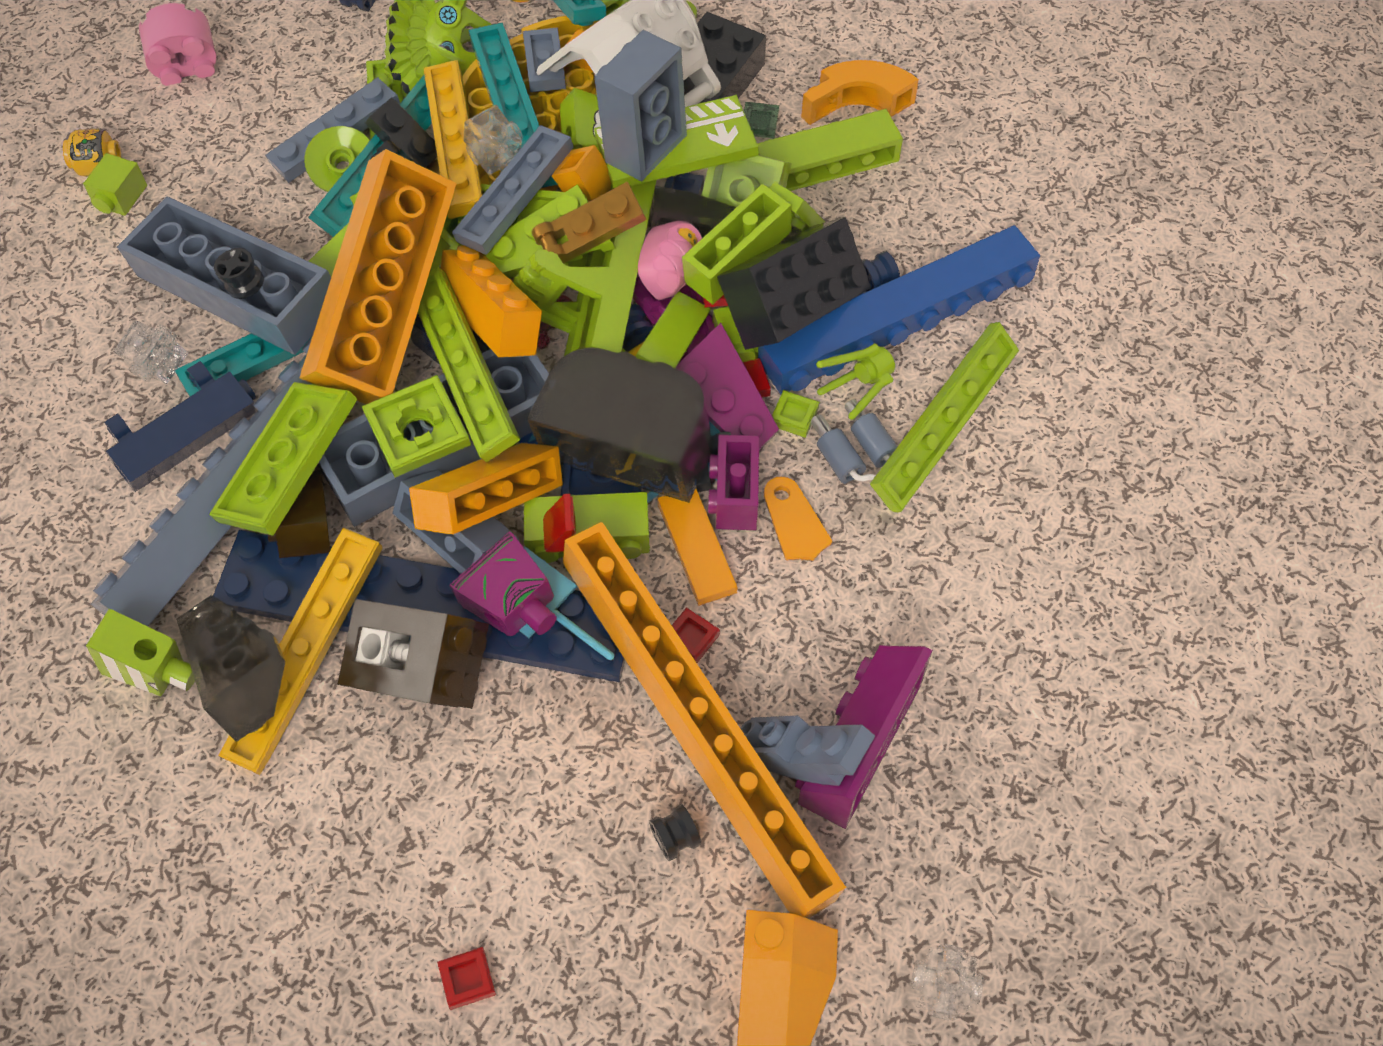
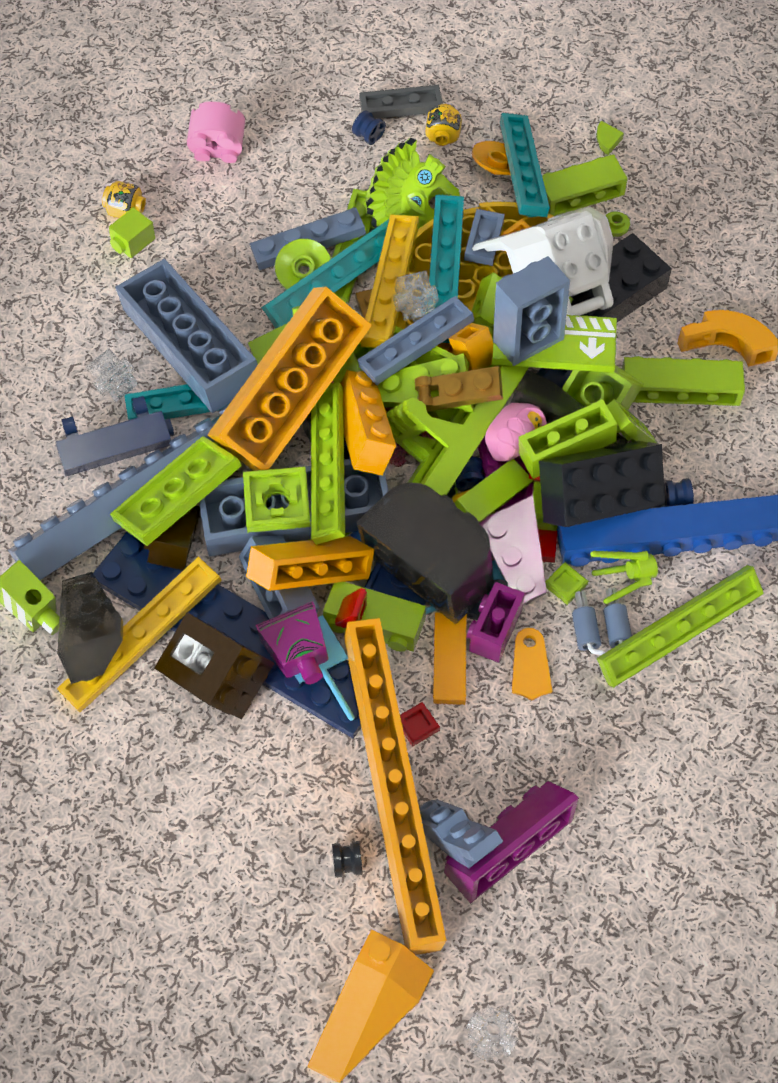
camera: 20 degrees right, 0 degrees up
(238, 273) = (192, 341): black wheel -> none
(402, 134) = (354, 265): black plate -> none
(466, 978) = (166, 903): red tile -> none
(762, 118) = (642, 335): clear green tile -> none

